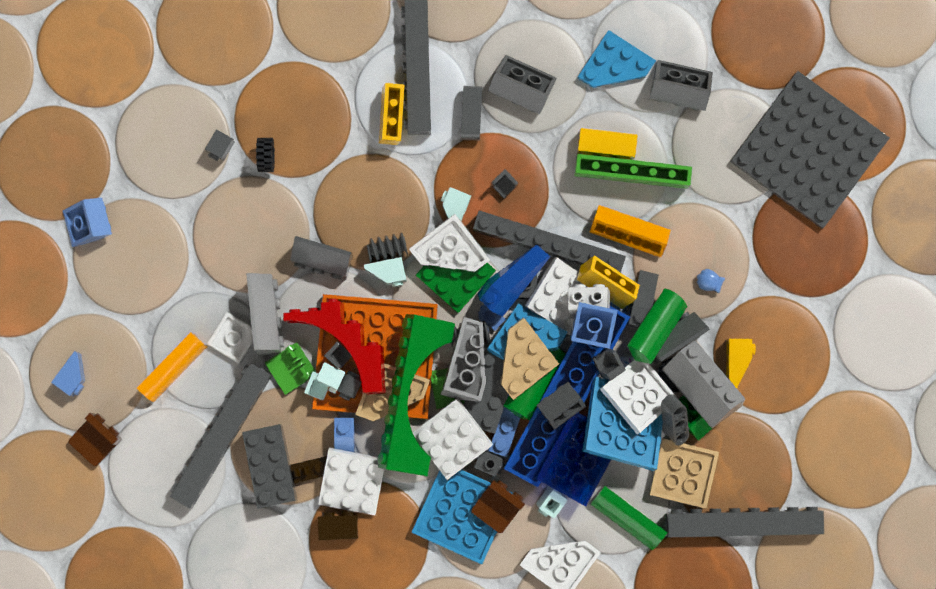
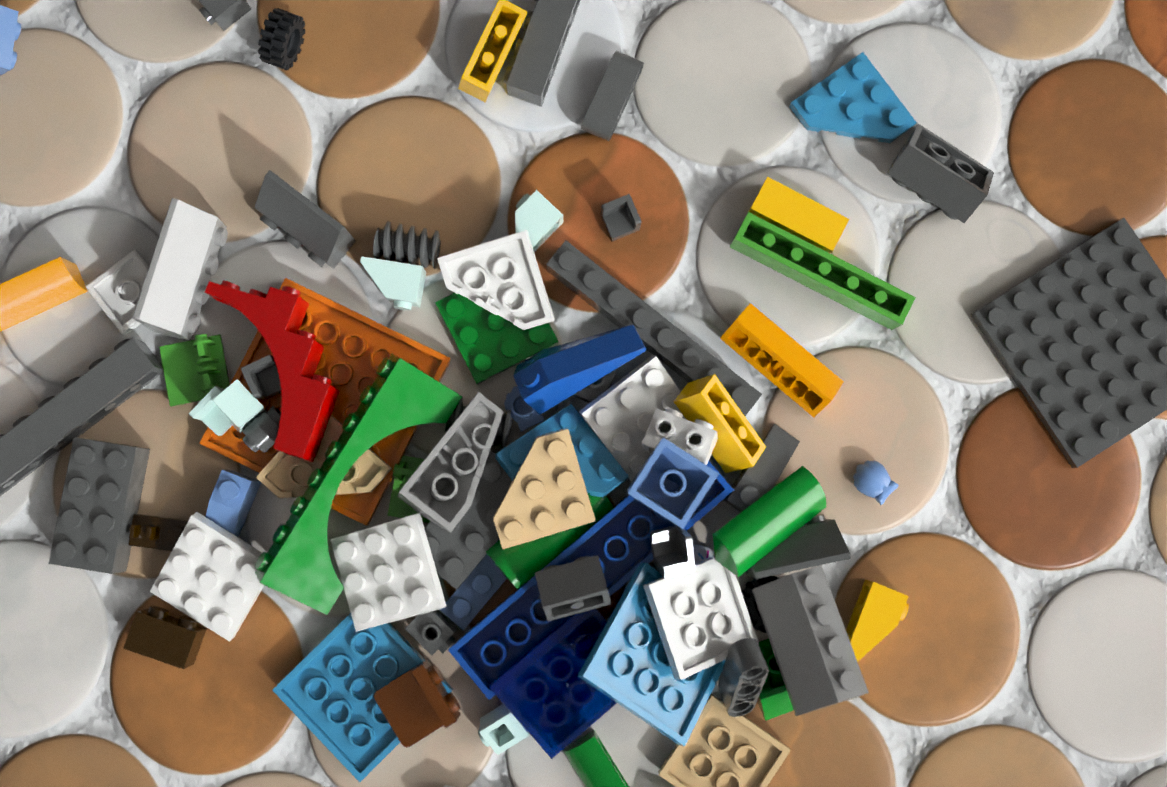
camera: 20 degrees right, 0 degrees up
(522, 84) = (703, 82): dark grey slope -> none

